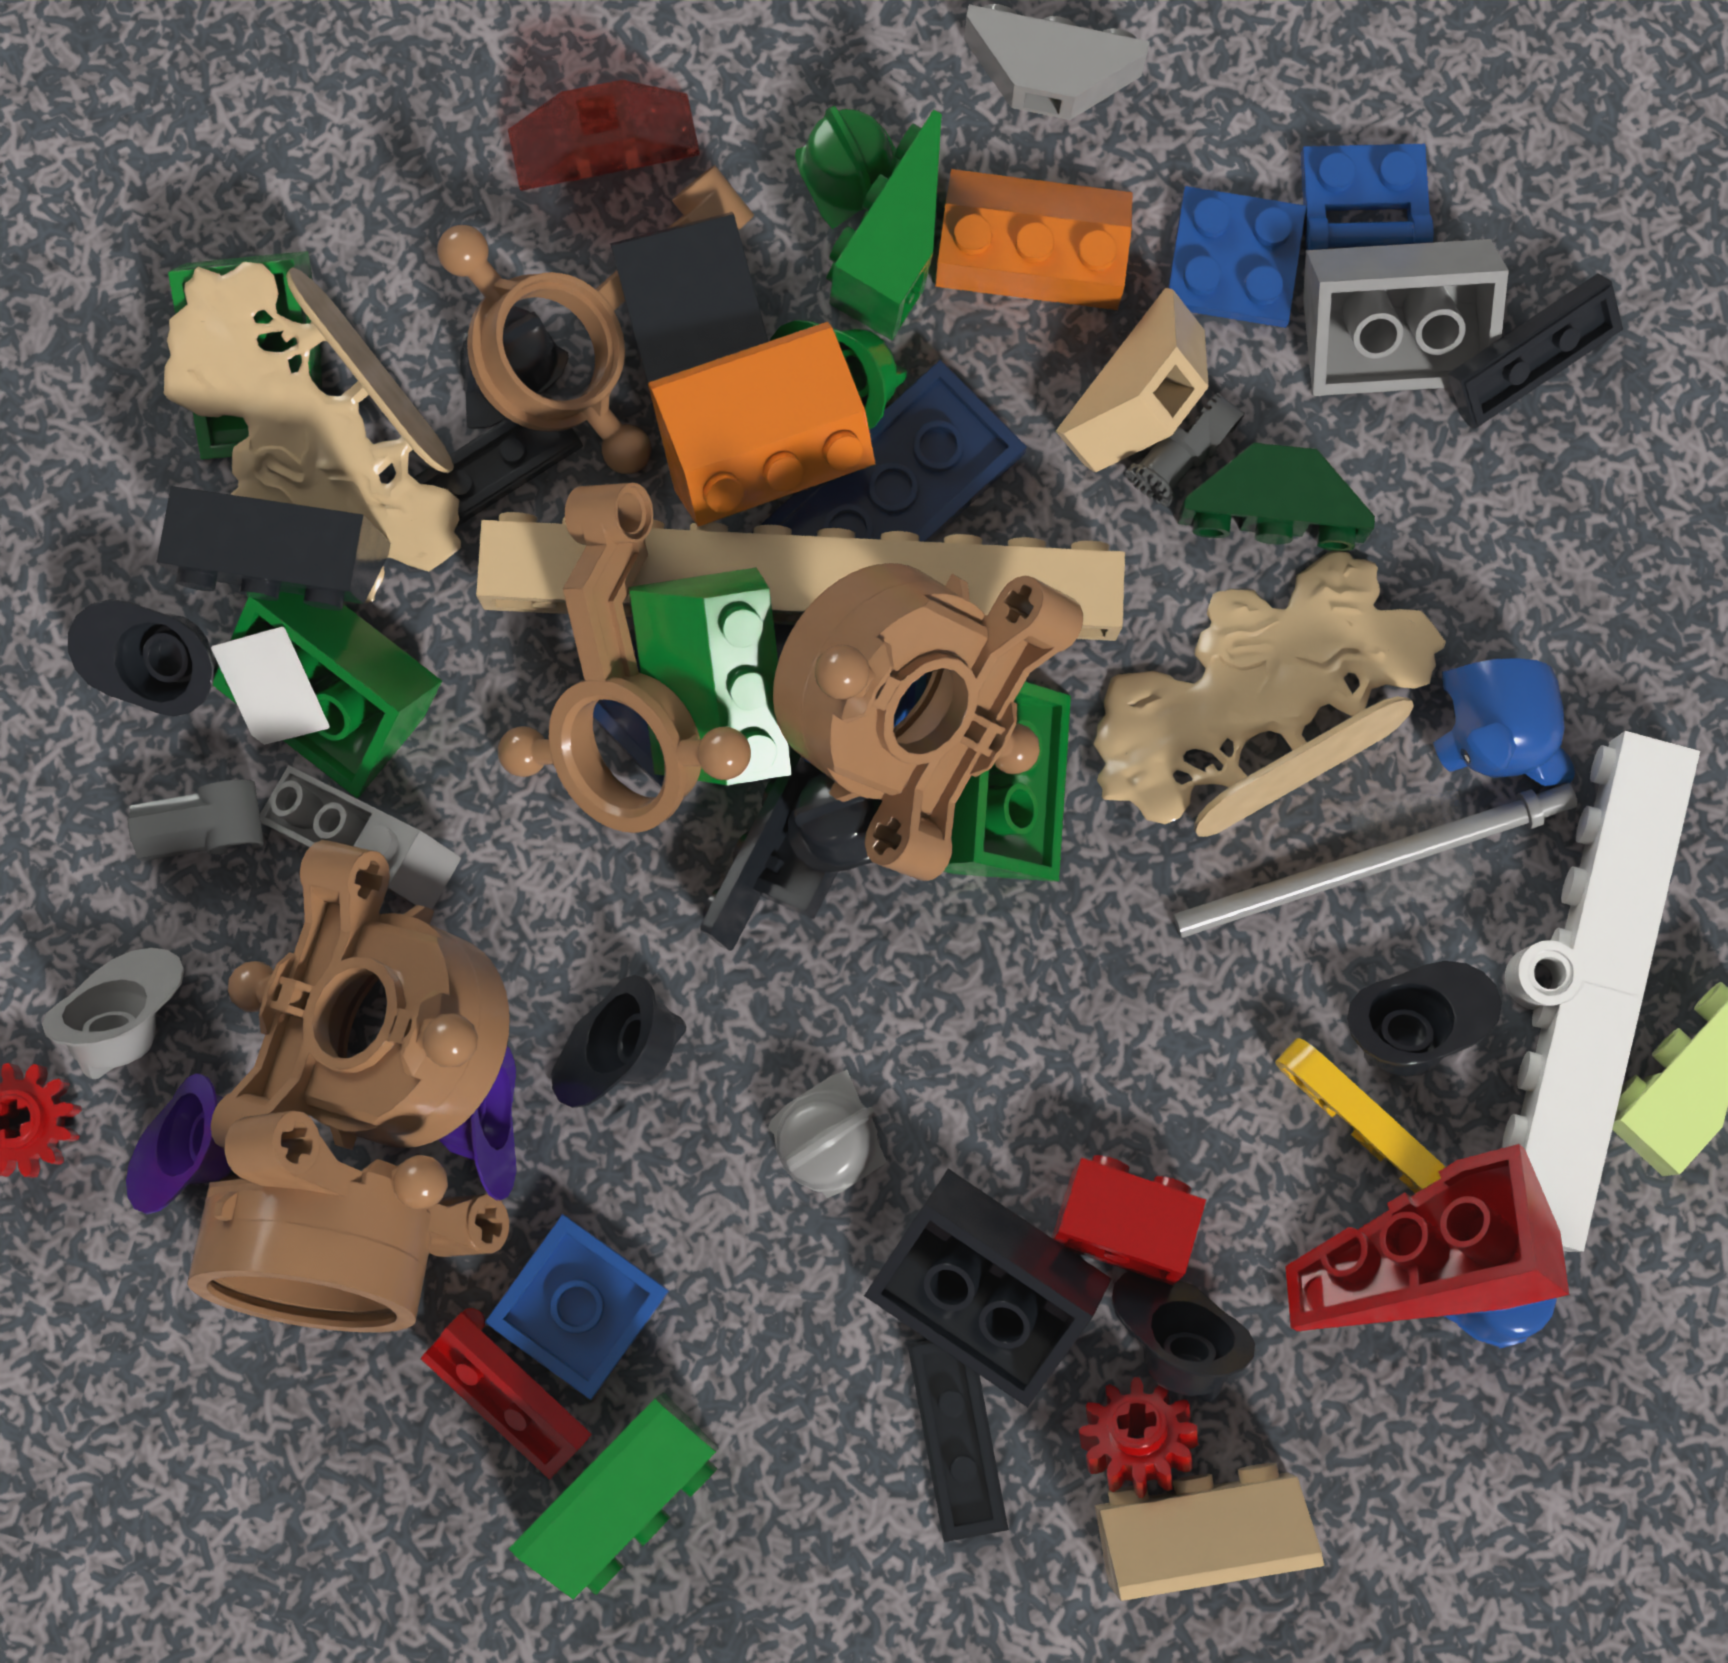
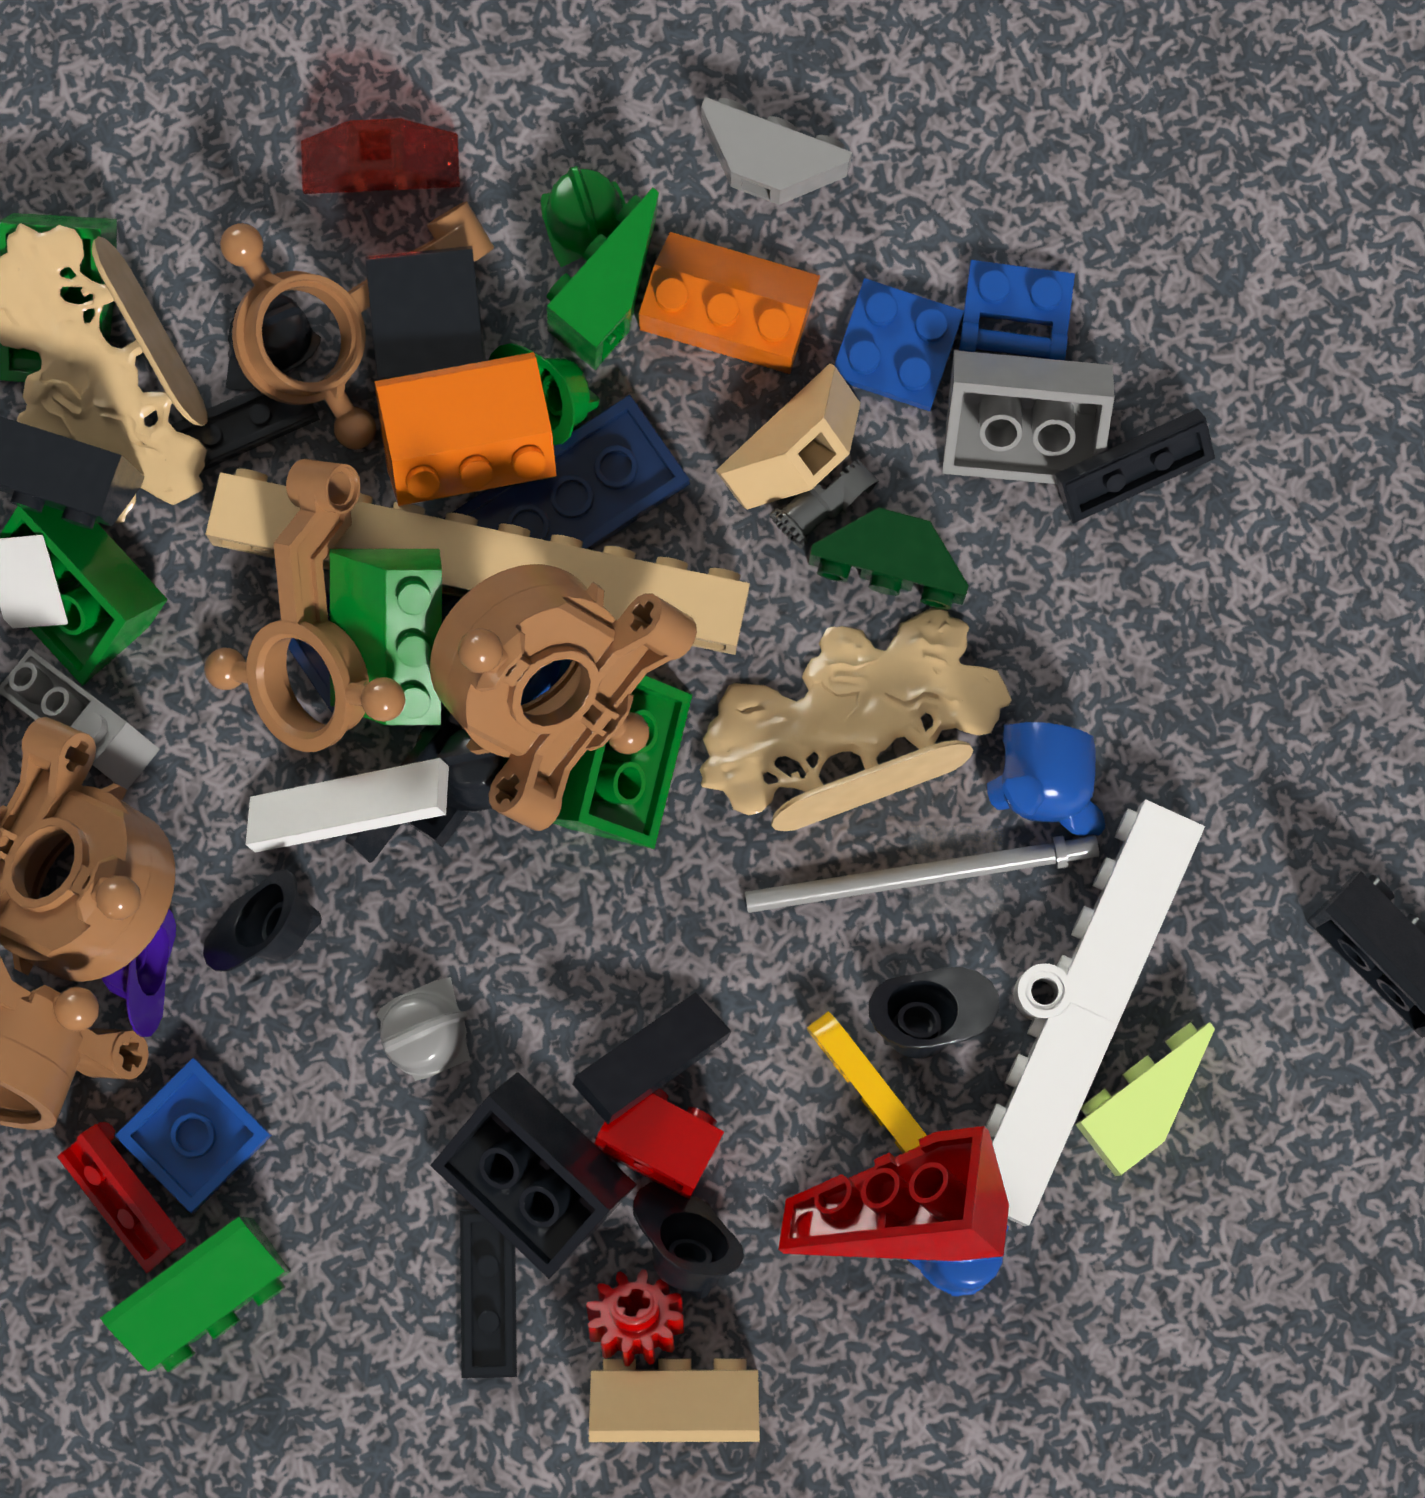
camera: 10 degrees right, 0 degrees up
(697, 887) = (348, 805): none -> white tile
(1104, 1127) = (651, 1058): none -> black tile

